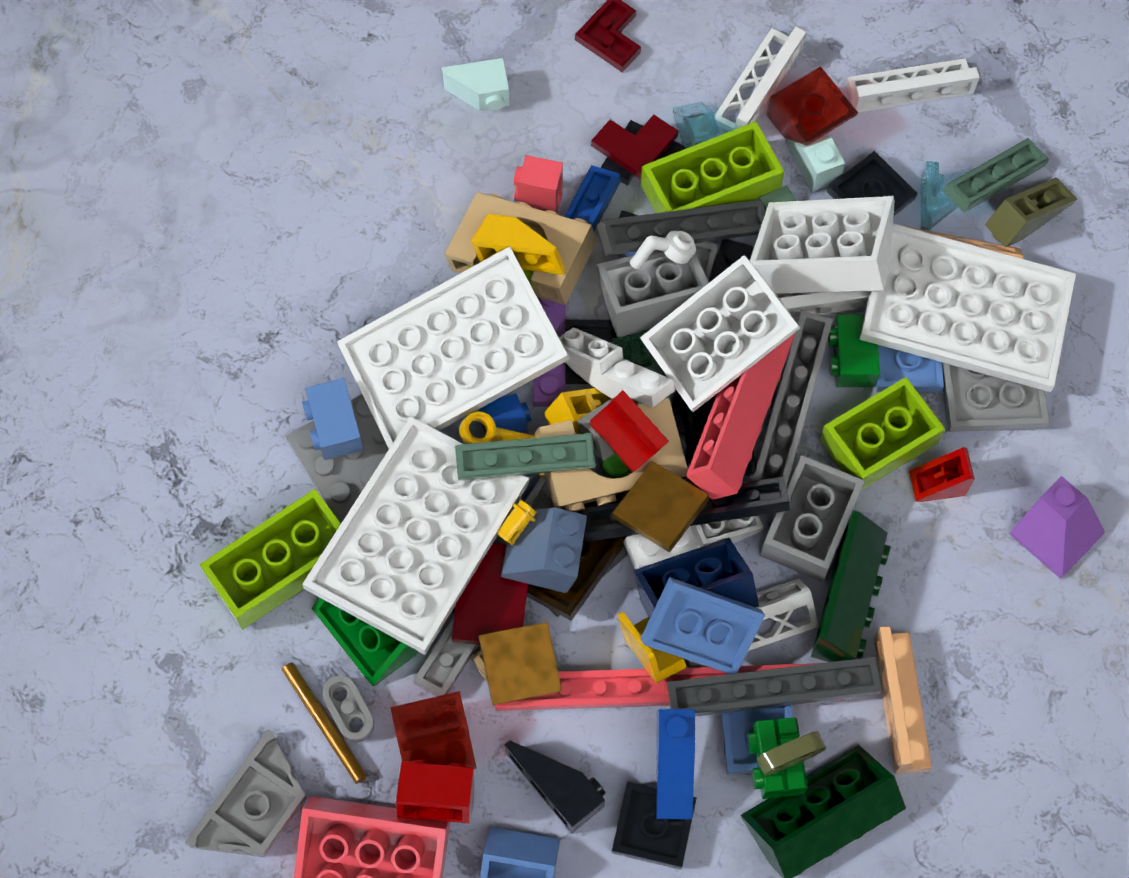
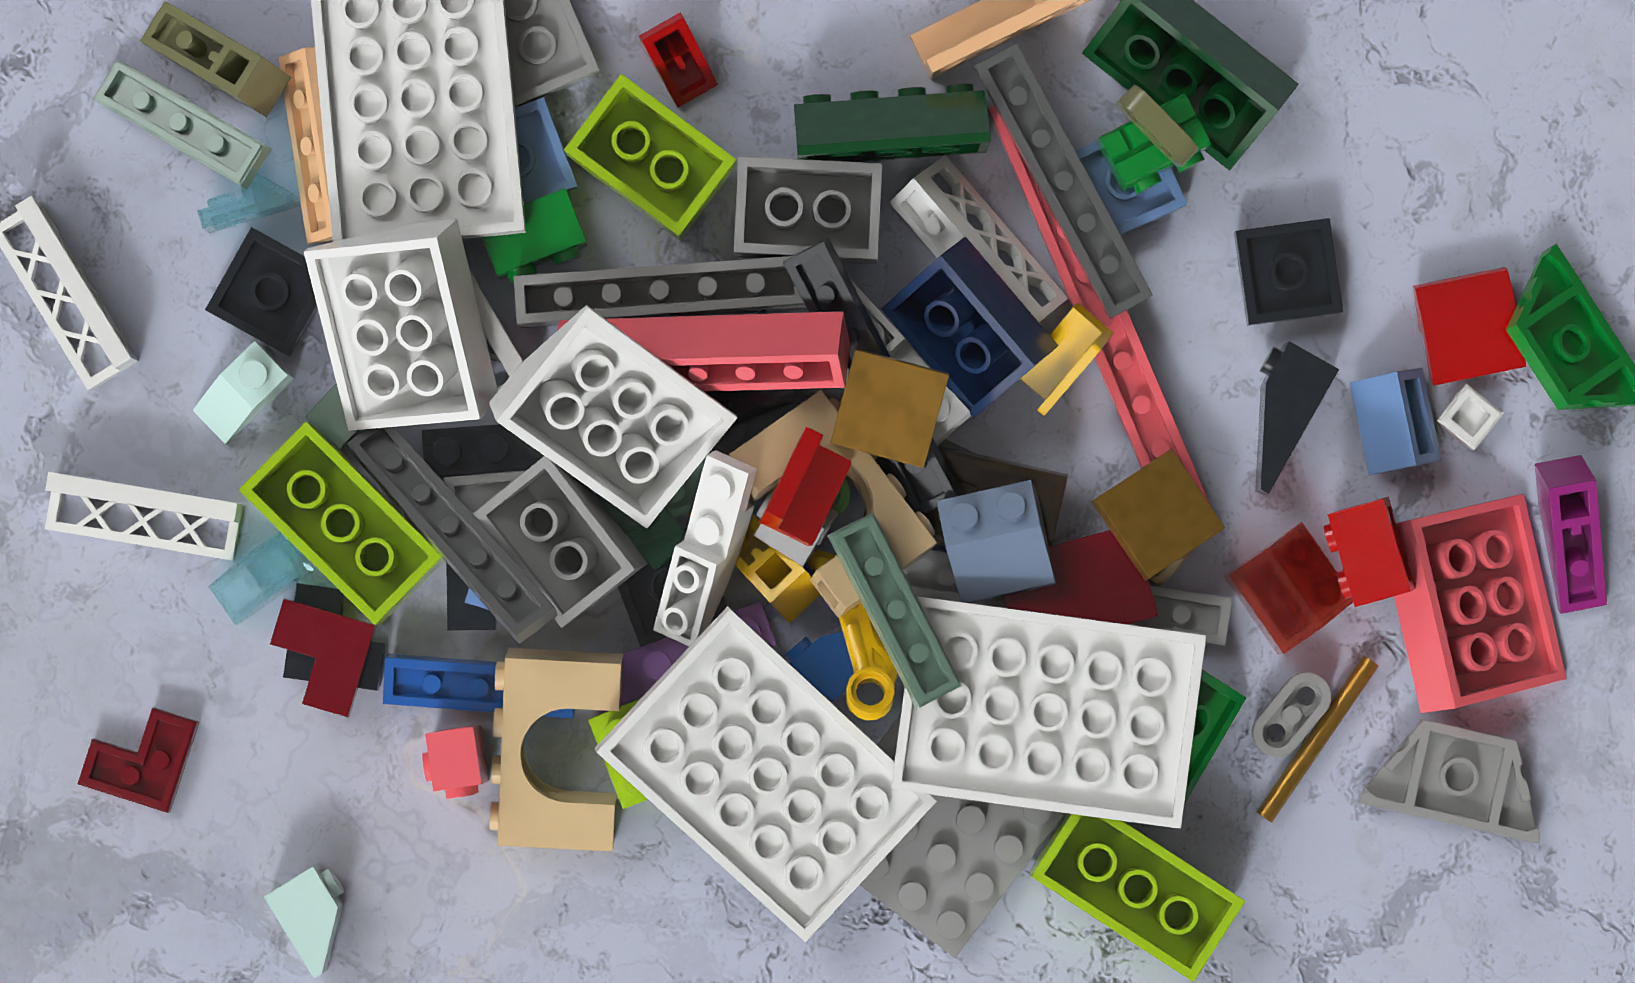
camera: 115 degrees left, 20 degrees up
(333, 419) = (919, 898): medium blue brick -> none
(516, 521) = (988, 590): yellow pin -> none
(529, 247) = (573, 773): yellow slope -> none
(675, 763) = (1210, 270): blue slope -> none
(676, 246) = (507, 534): white plate -> none
(702, 626) = (1032, 295): medium blue plate -> none
(809, 108) = (179, 418): clear red slope -> none

